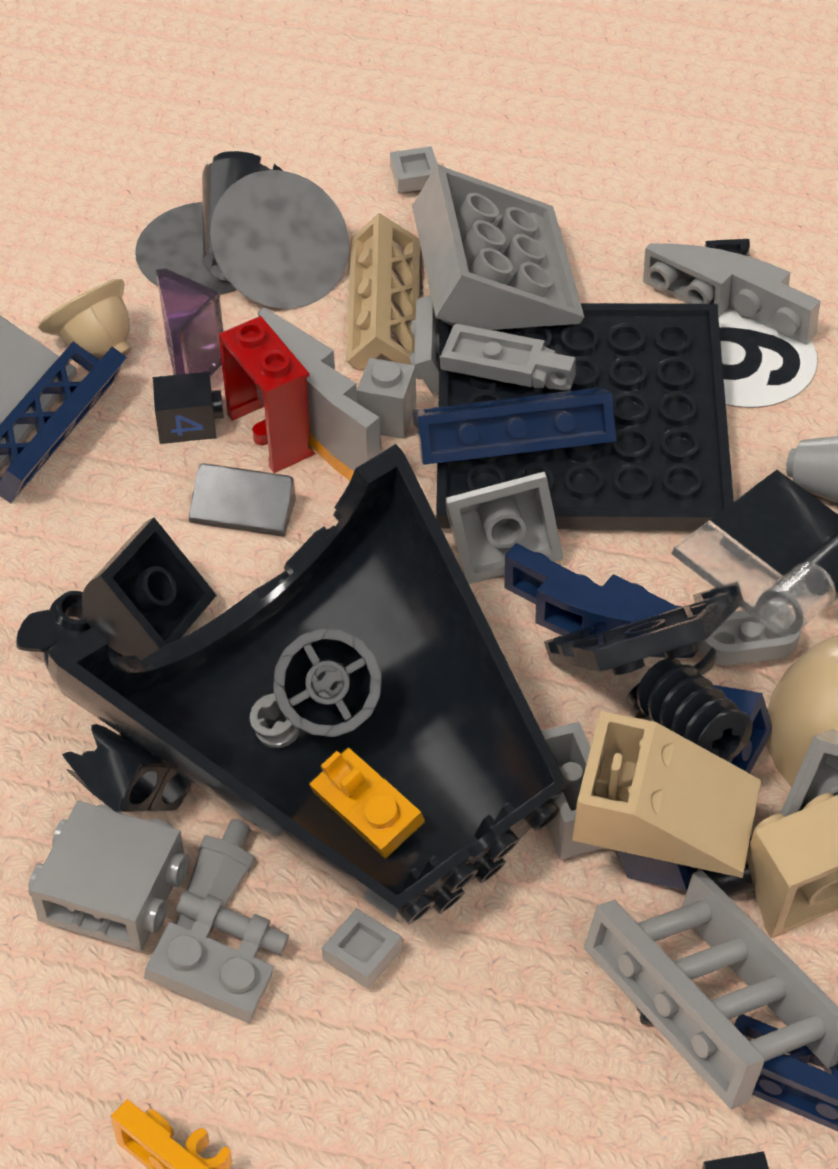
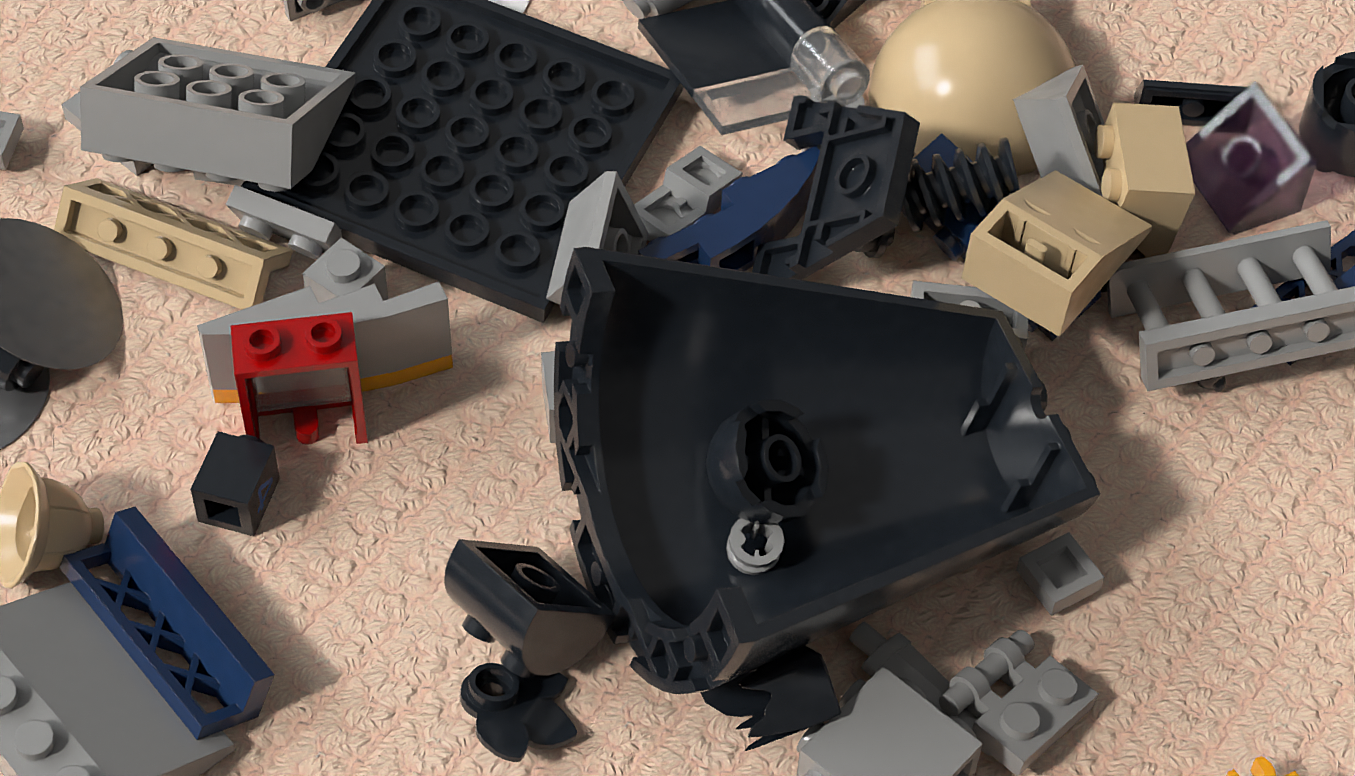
camera: 70 degrees left, 5 degrees up
(190, 323) = (130, 432): slope -> none
(242, 499) = (406, 480): slope -> none
(366, 802) = (896, 502): light orange plate -> none
(506, 358) = (376, 159): light grey hinge -> none
(515, 425) = (478, 188): dark blue fence -> none
(632, 562) = (688, 192): none -> light grey slope

